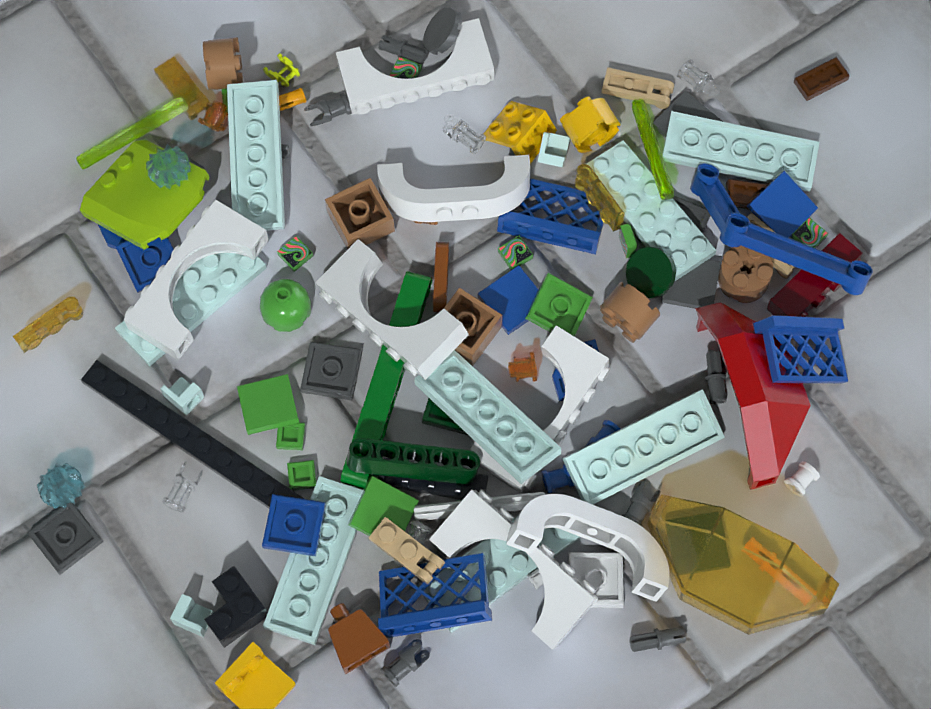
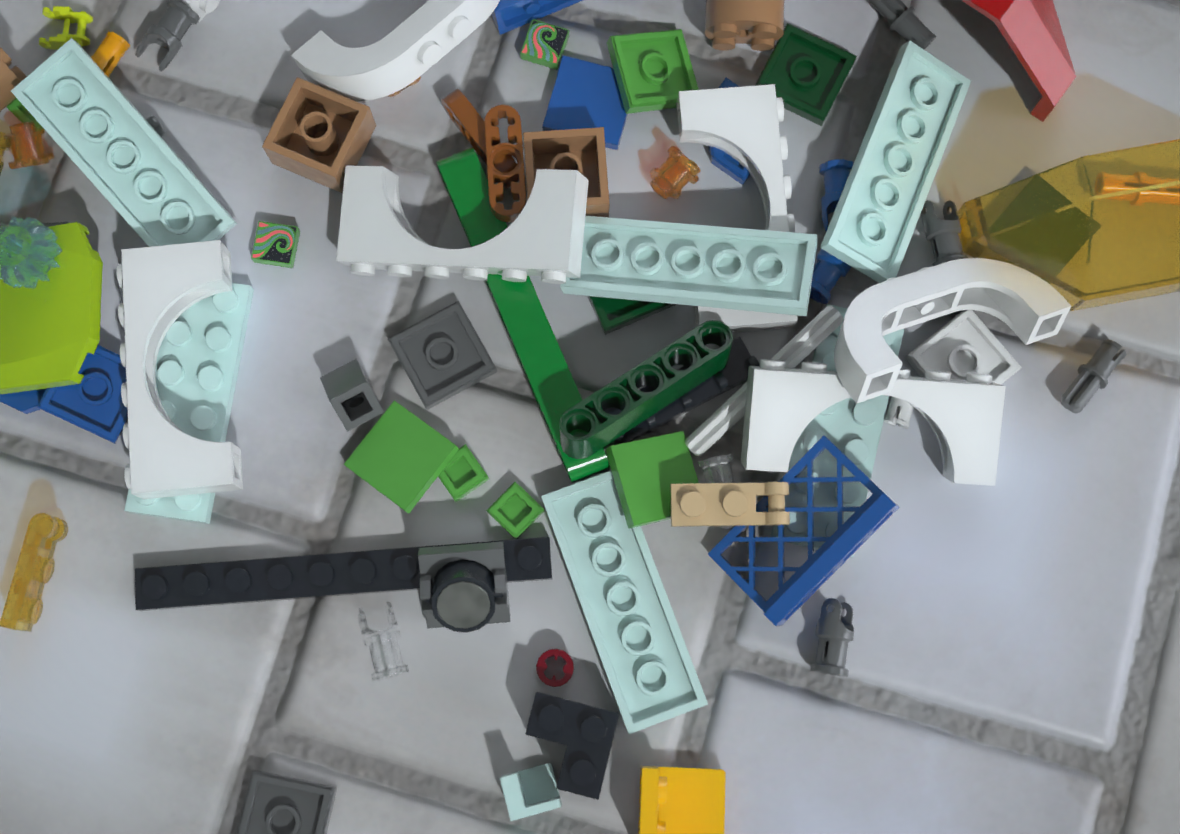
camera: 40 degrees left, 10 degrees up
(60, 486) = (226, 765): clear light blue gear -> none
(183, 395) = (284, 527): light aqua panel -> none
(243, 492) = (467, 589): none -> piece
(249, 561) = (541, 667): none -> dark red bush
(268, 354) = (351, 395): none -> dark grey brick
(285, 305) = (318, 317): bright green cylinder -> none
(294, 525) = (563, 581): blue tile -> none
(355, 638) = (750, 658): dark orange torso -> none
(443, 278) = (492, 136): none -> dark orange beam
(639, 368) = (806, 73): none -> dark green tile
(801, 479) = (1095, 63): white bush -> none

